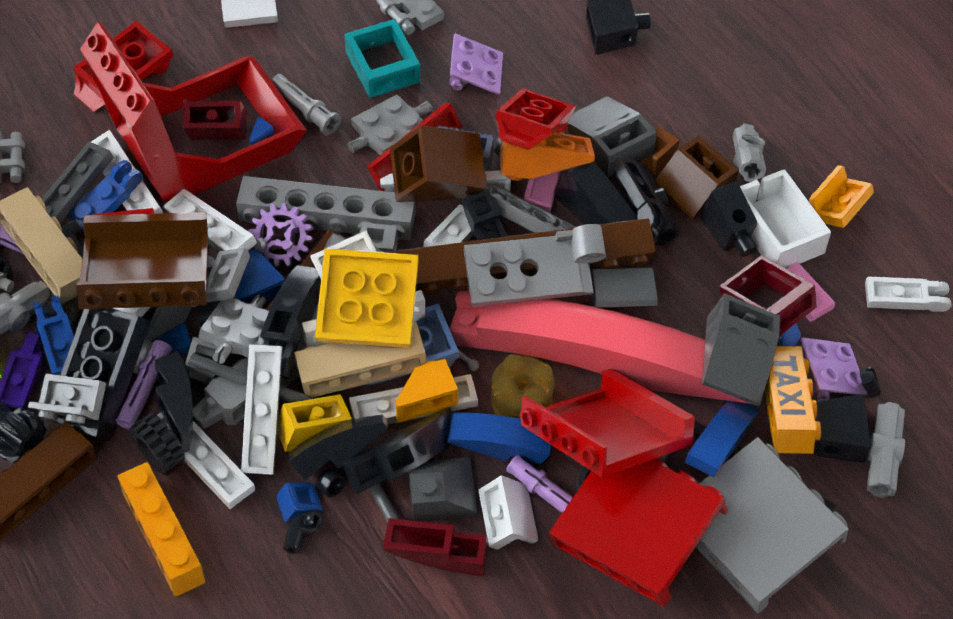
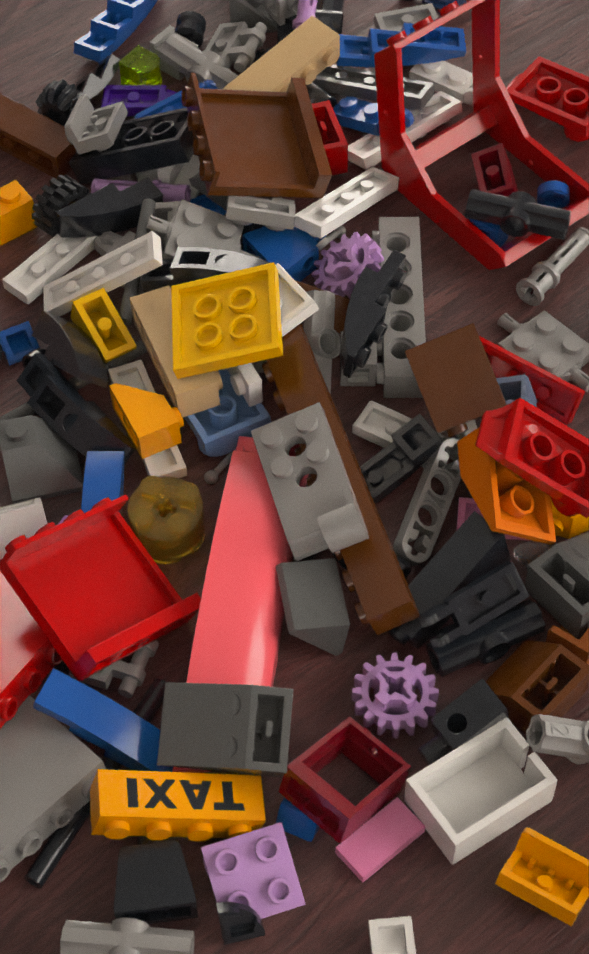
camera: 85 degrees right, 0 degrees up
(30, 152) = (433, 47): none -> blue slope
(69, 138) = (447, 79): none -> white hinge
(231, 89) = (553, 194): none -> blue tile
(267, 105) = (518, 214): none -> black piece
(349, 219) = (367, 311): none -> black slope
(694, 263) = (395, 695): none -> lavender gear

